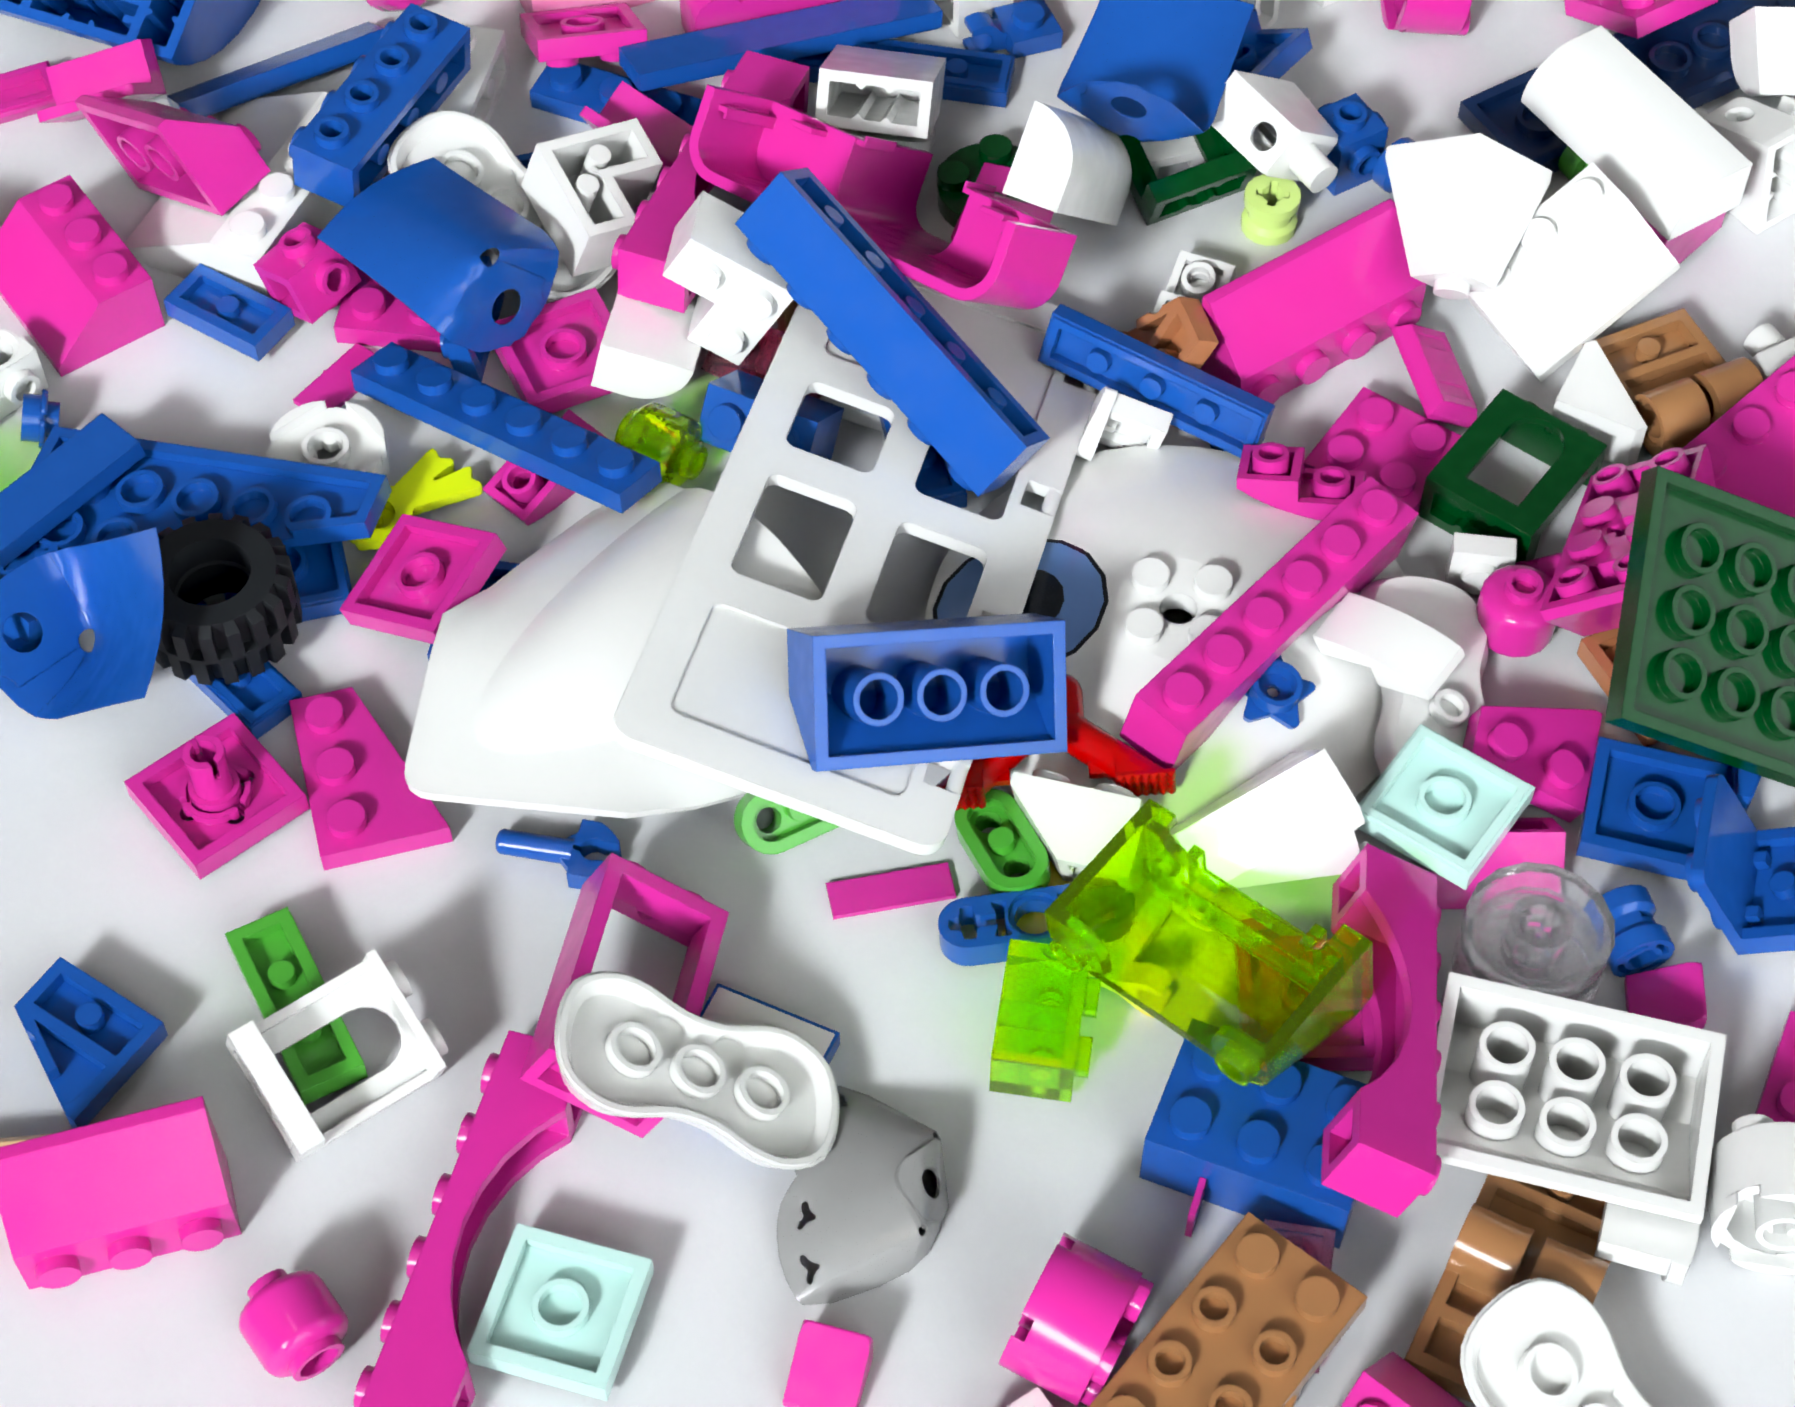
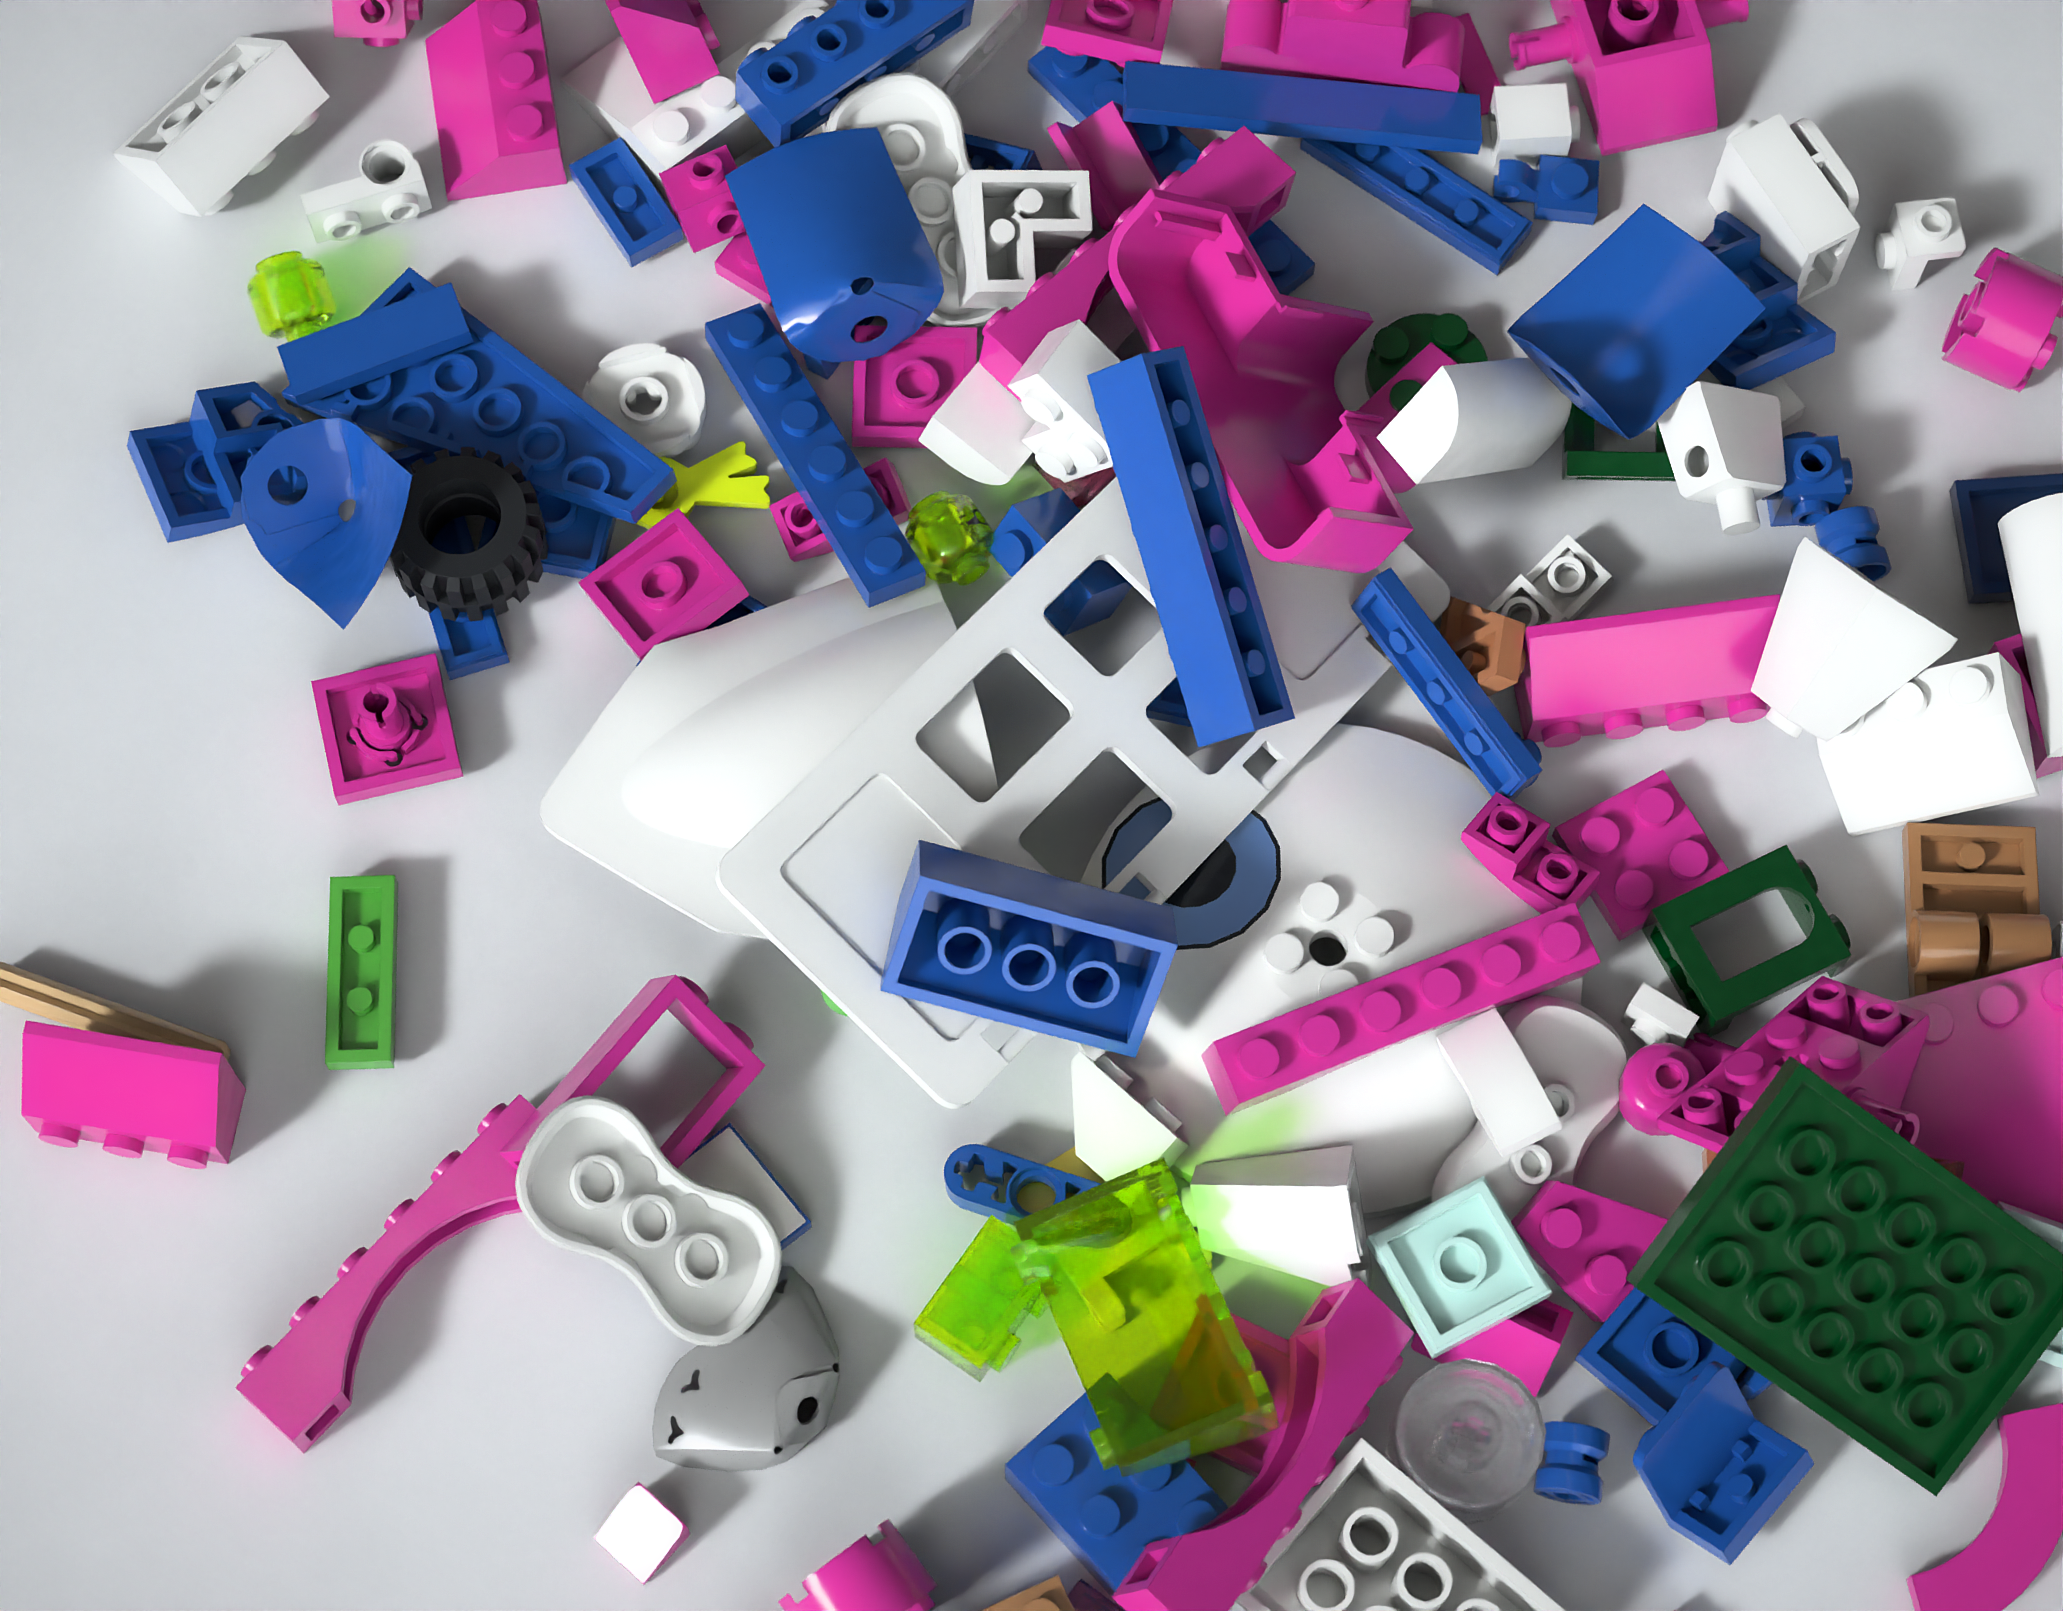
camera: 25 degrees right, 15 degrees up
(38, 417) = (403, 247): blue plate -> none
(86, 1038) = (172, 922): blue wing -> none
(293, 1324) = (224, 1277): dark pink head -> none
(336, 382) = (686, 325): dark pink window -> none
(358, 784) = (512, 765): dark pink wing -> none
(363, 986) = (432, 1080): white panel -> none
(561, 1311) = (449, 1369): light aqua plate -> none
(568, 851) = (662, 924): blue bar -> none
(882, 94) = (1354, 231): brick -> none
(890, 890) = (899, 1090): dark pink window -> none
(1005, 850) = (1043, 1109): bright green plate -> none
(1086, 742) = (1168, 1050): red piece -> none
(1121, 423) = (1396, 709): white tile -> none
(1195, 1207) = (1031, 1535): dark pink window -> none
(1270, 210) = (1685, 537): yellowish green wheel -> none
(1283, 707) = (1372, 1094): blue plate -> none
(1435, 375) = (1741, 789): dark pink tile -> none
(1601, 406) = (1874, 900): white slope -> none
(1669, 994) = (1564, 1546): dark pink slope -> none

